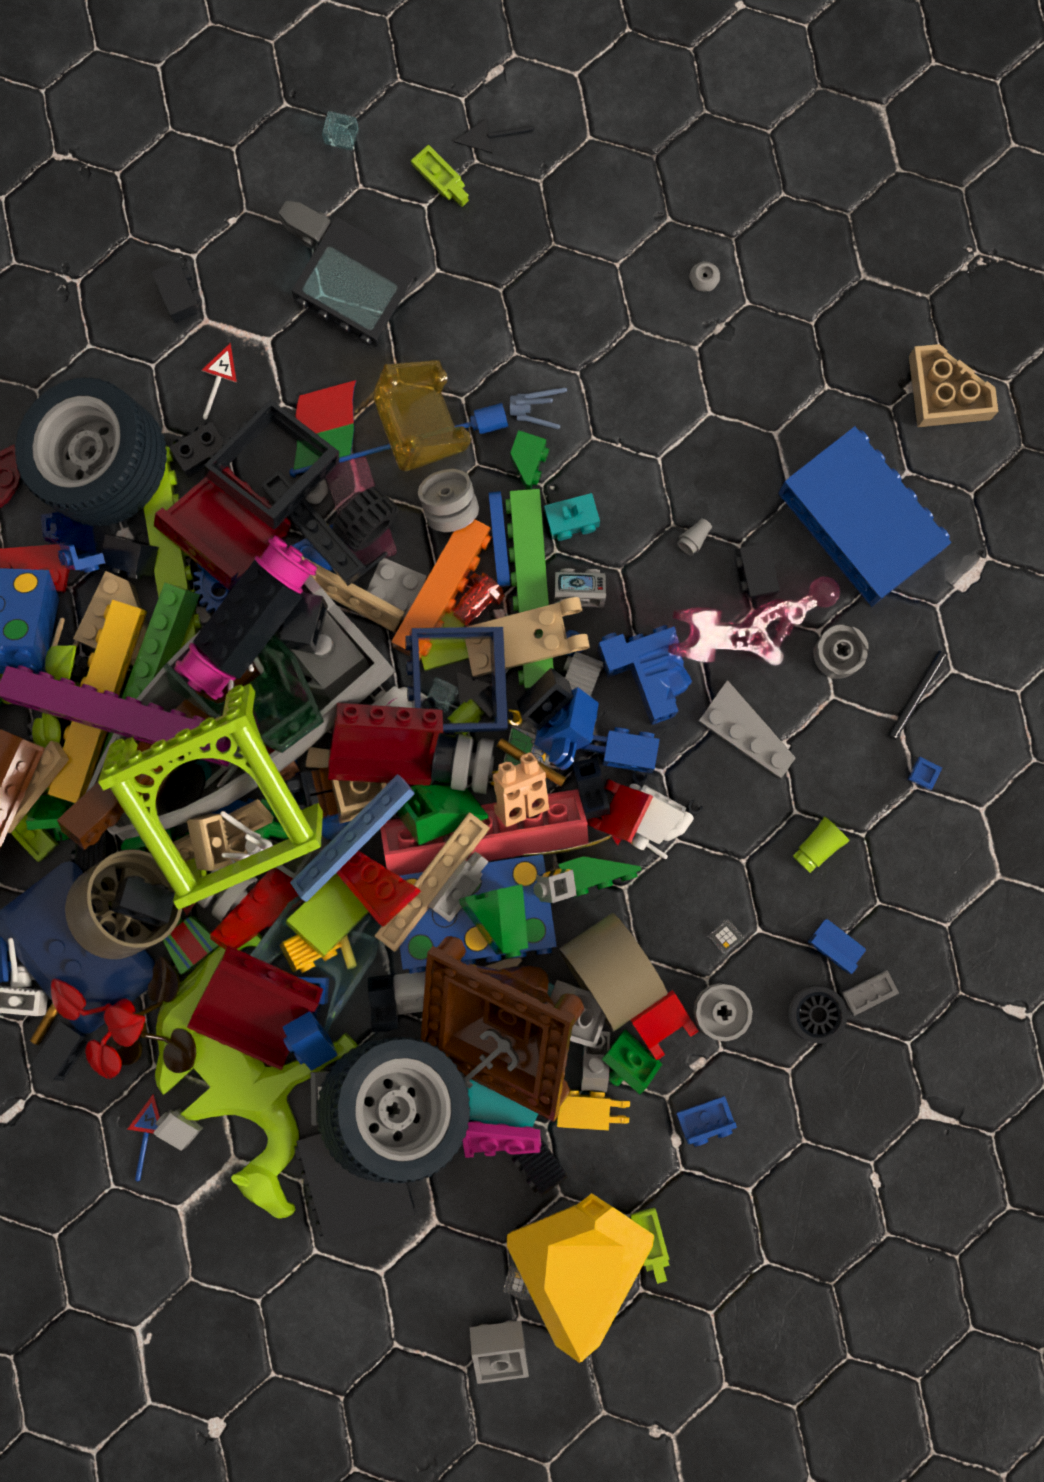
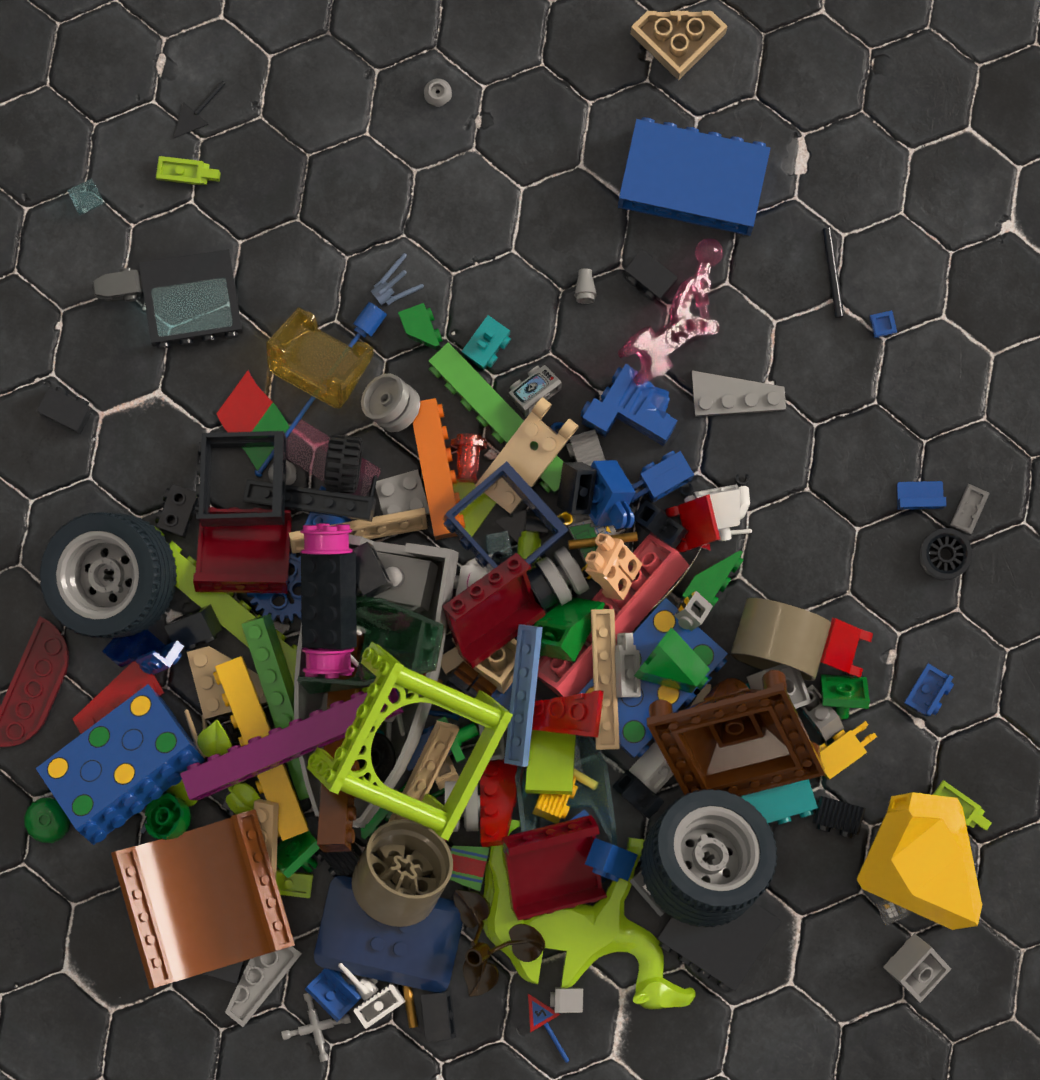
camera: 40 degrees left, 0 degrees up
(119, 1018) = (473, 952): red plant -> none
(143, 901) = (416, 857): black brick -> none
(209, 841) = (428, 777): tan brick -> none
(222, 367) = (142, 438): piece -> none
(254, 842) = (460, 755): white plant -> none
(499, 539) = (447, 401): blue beam -> none
(500, 1137) = (797, 818): dark pink wing -> none
(504, 1045) = (749, 749): dark grey piece -> none
(726, 936) = (838, 551): slope -> none
(737, 1015) = (878, 592): light grey wheel -> none
(820, 845) = (851, 434): lime plant -> none
(836, 638) = (767, 282): light grey brick -> none

